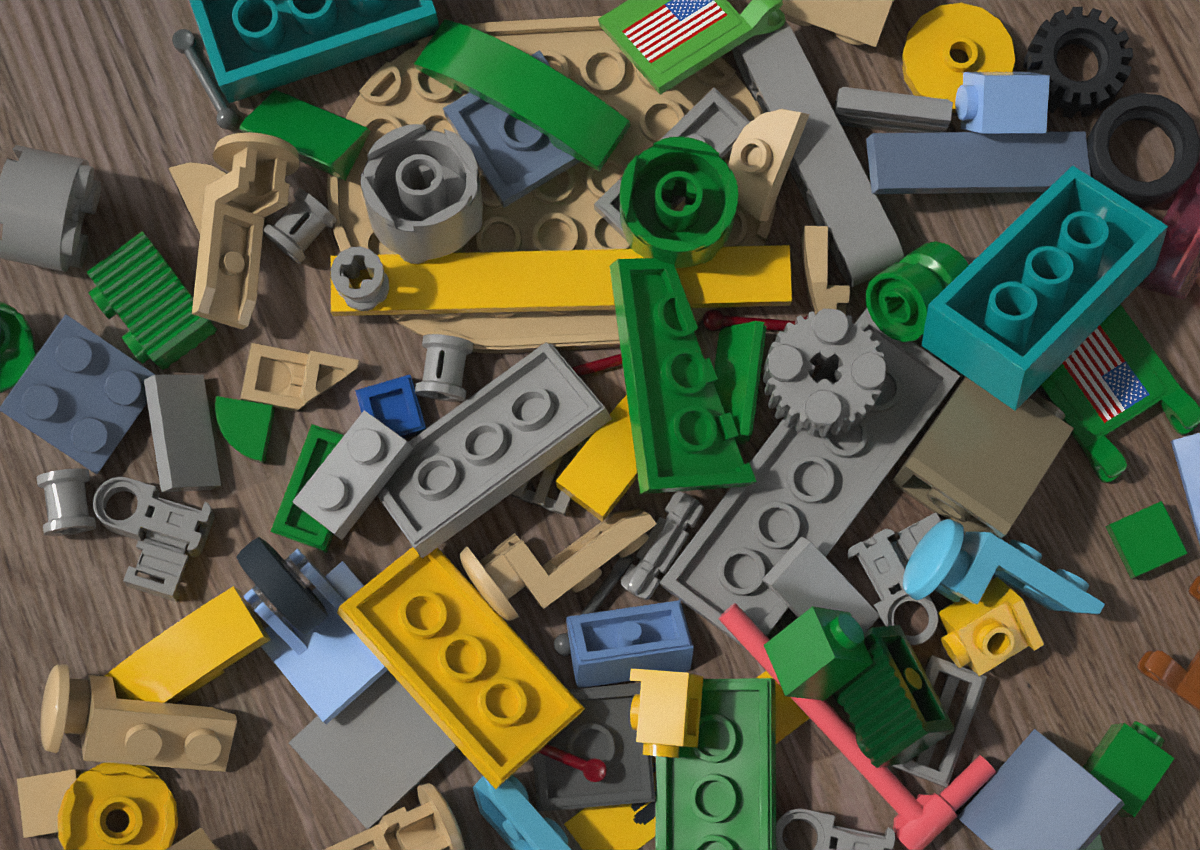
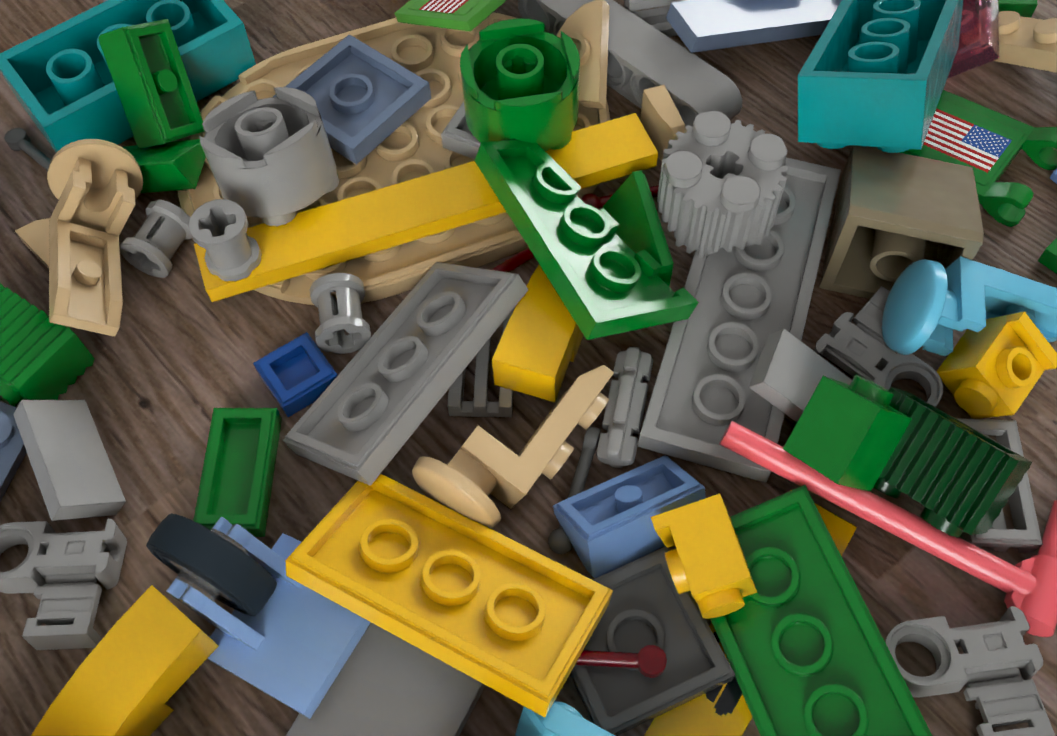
camera: 20 degrees left, 20 degrees down
(246, 426) = (143, 434): green tile -> none
(291, 377) = (182, 377): tan slope -> none
(331, 64) = (152, 83): none -> green slope
(353, 474) = (268, 435): light grey plate -> none
(525, 90) = (349, 50): green slope -> none
(902, 292) = (767, 103): green wheel -> none

